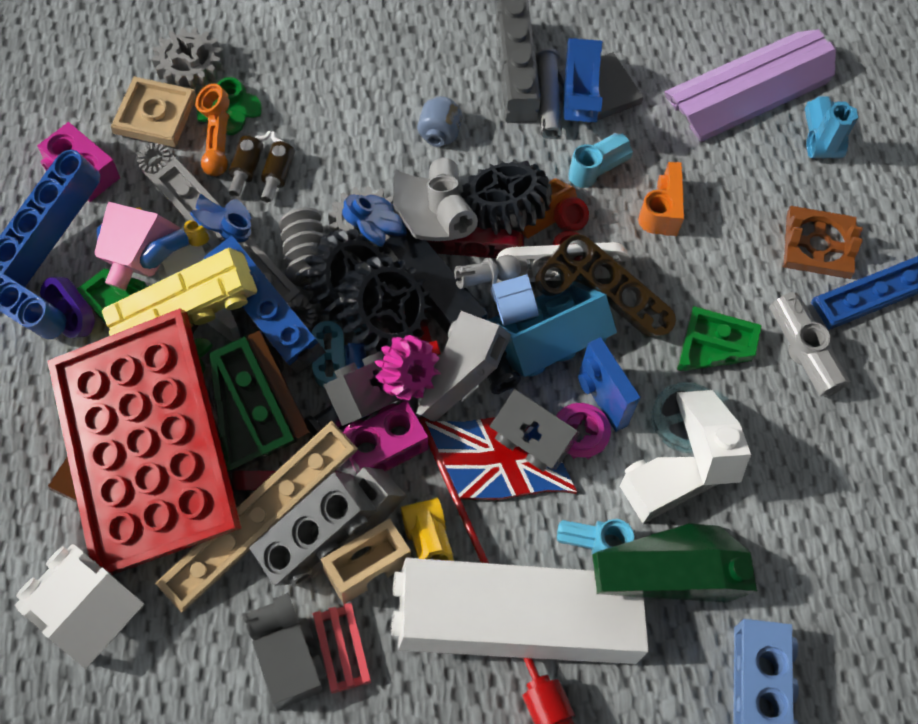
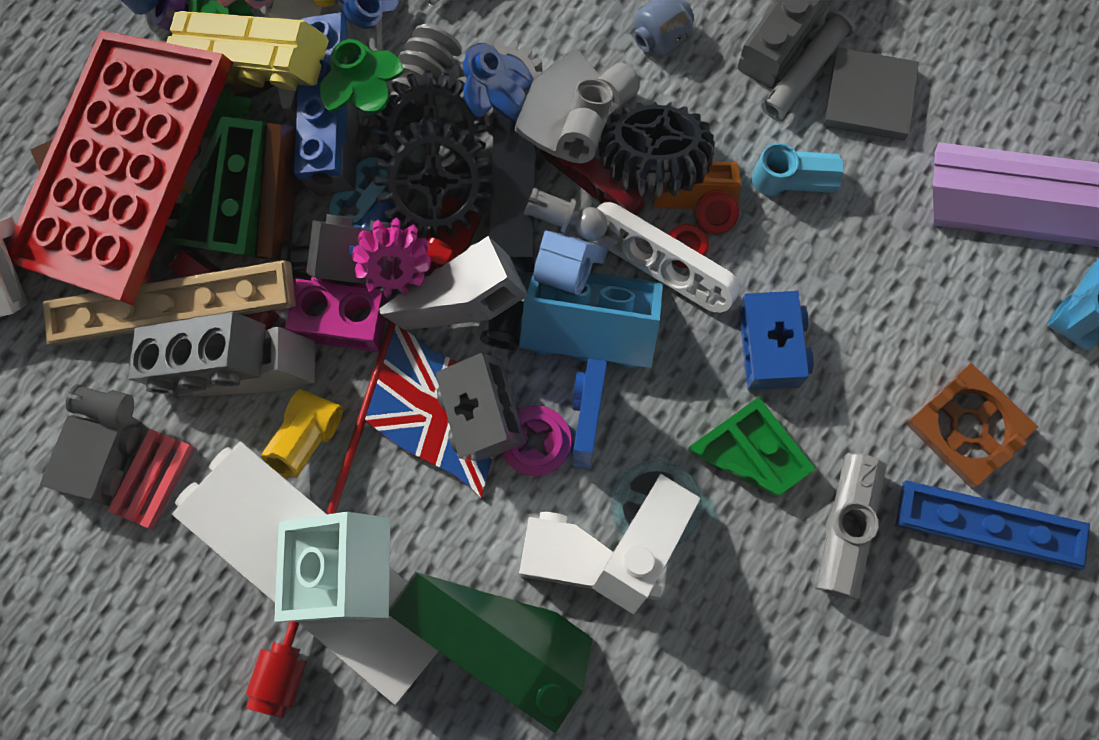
camera: 45 degrees right, 10 degrees up
(289, 270) = (359, 77): none -> green plate
(385, 556) = (199, 416): tan brick -> none
(541, 590) = (333, 568): none -> light aqua slope
(582, 80) = (846, 73): blue arch -> none
(593, 536) = (452, 551): medium azure axle -> none
(619, 281) = (674, 320): dark brown beam -> none
(666, 201) = (830, 265): orange plate -> none
(672, 267) = (764, 362): none -> blue brick

